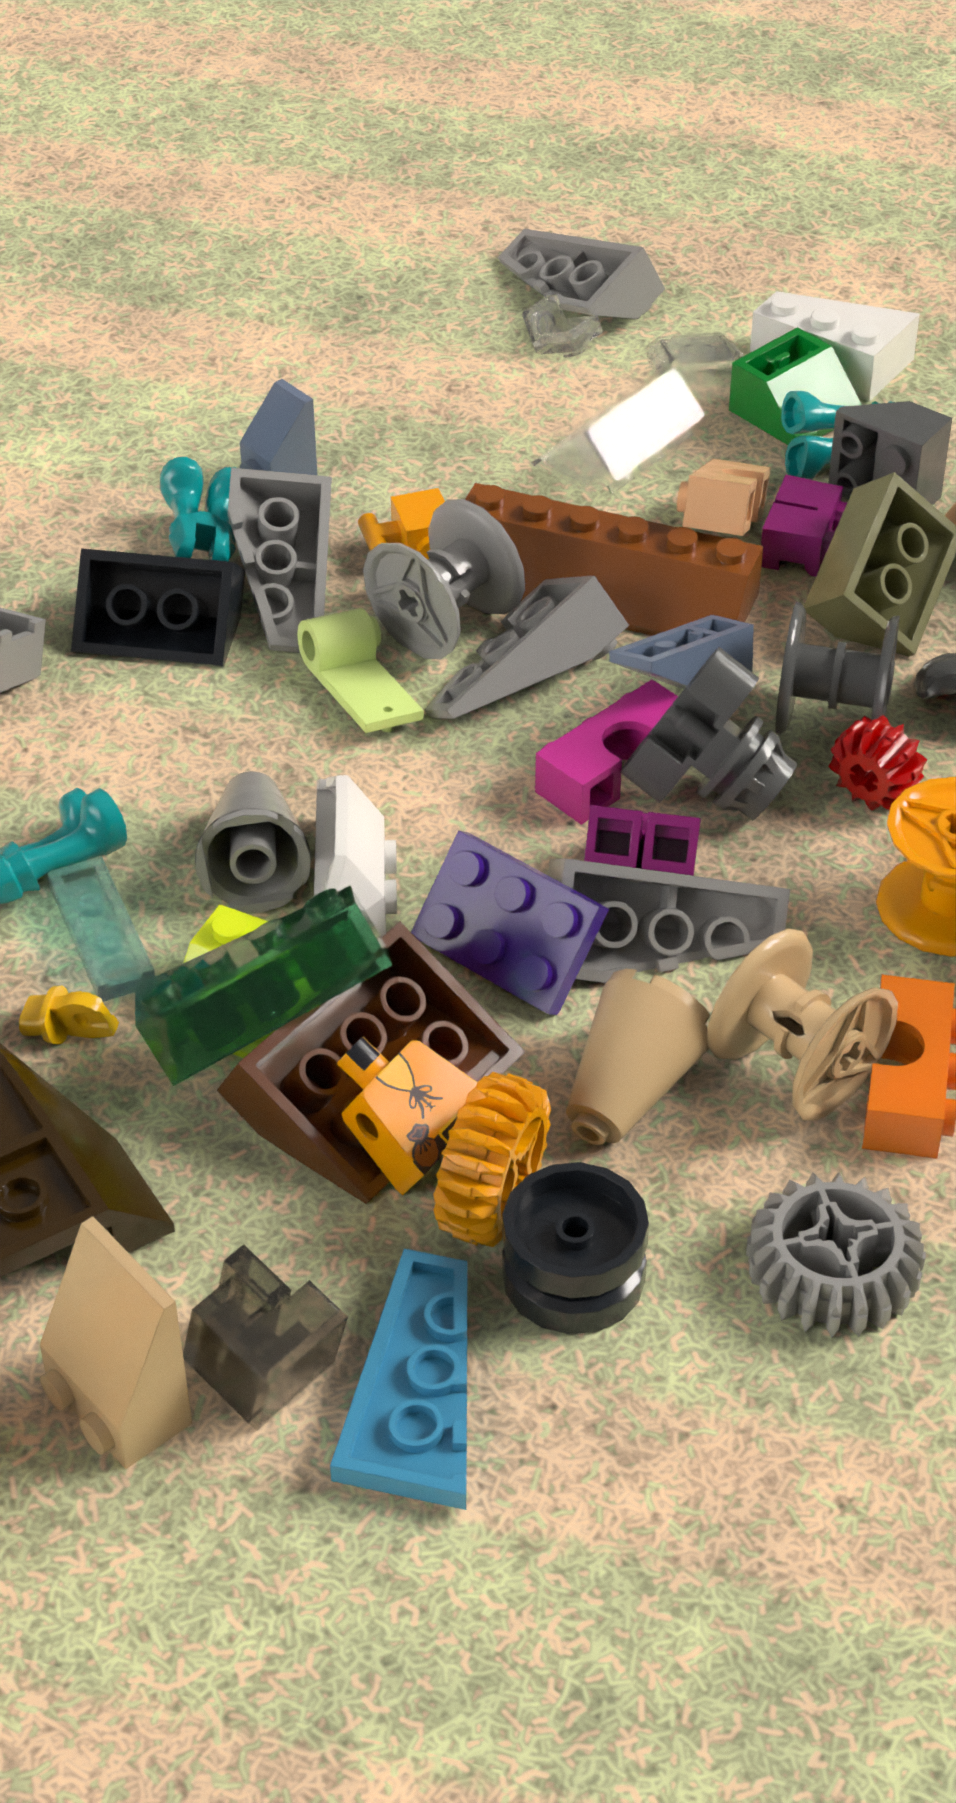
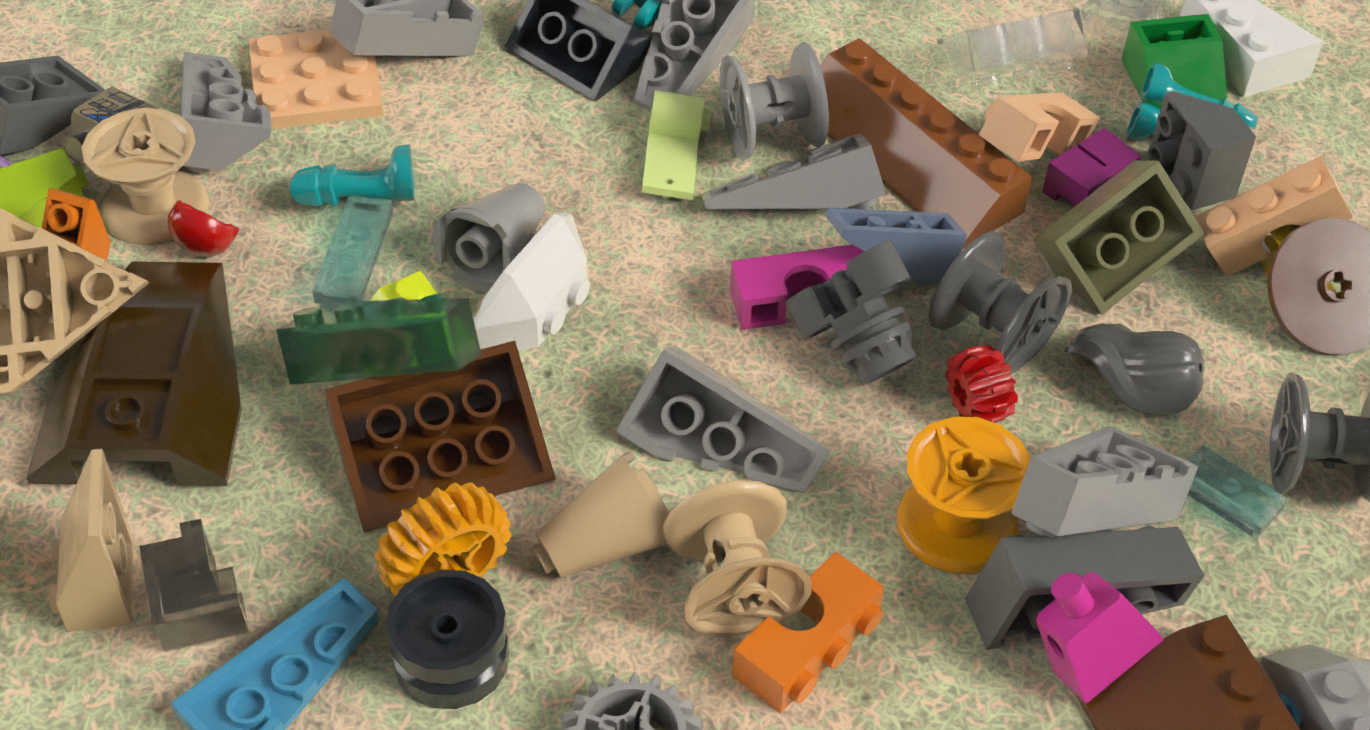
camera: 30 degrees right, 5 degrees up
(65, 1014) = (277, 298): yellow piece -> none
(403, 1107) = (418, 465): light orange torso -> none
(408, 524) = (780, 52): light orange brick -> none
(509, 922) = (608, 378): plate -> none
(642, 840) = (749, 363): magenta hips -> none

